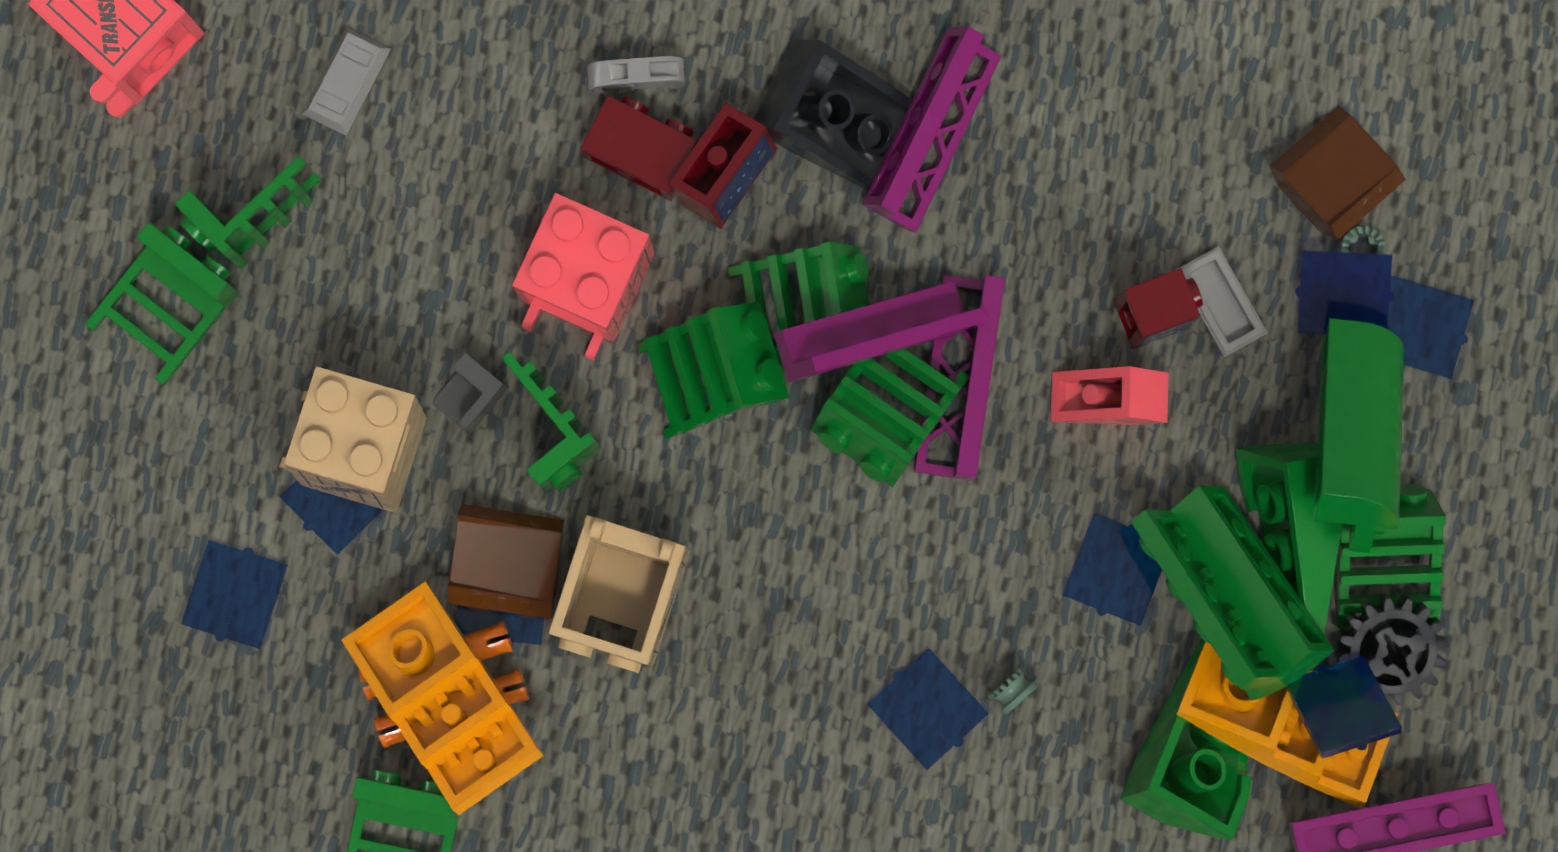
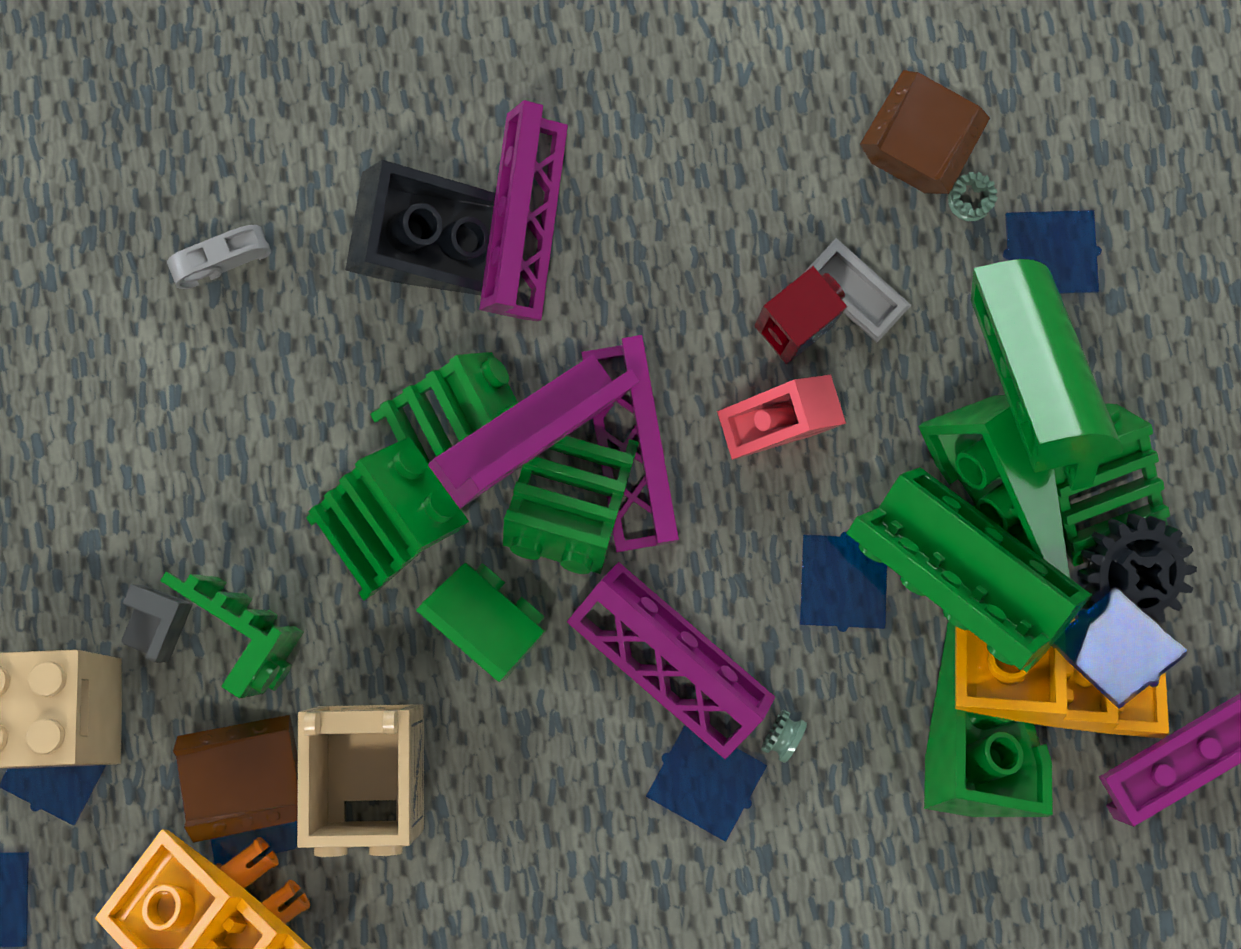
camera: 25 degrees left, 0 degrees up
(583, 270) = (220, 463): coral container -> none
(638, 145) = (244, 324): dark red brick -> none
(723, 166) = (330, 315): dark red brick -> none
(774, 492) = (484, 620): none -> green slope
(947, 578) = (684, 648): none -> magenta fence
(1343, 288) = (967, 238): clear blue piece -> none

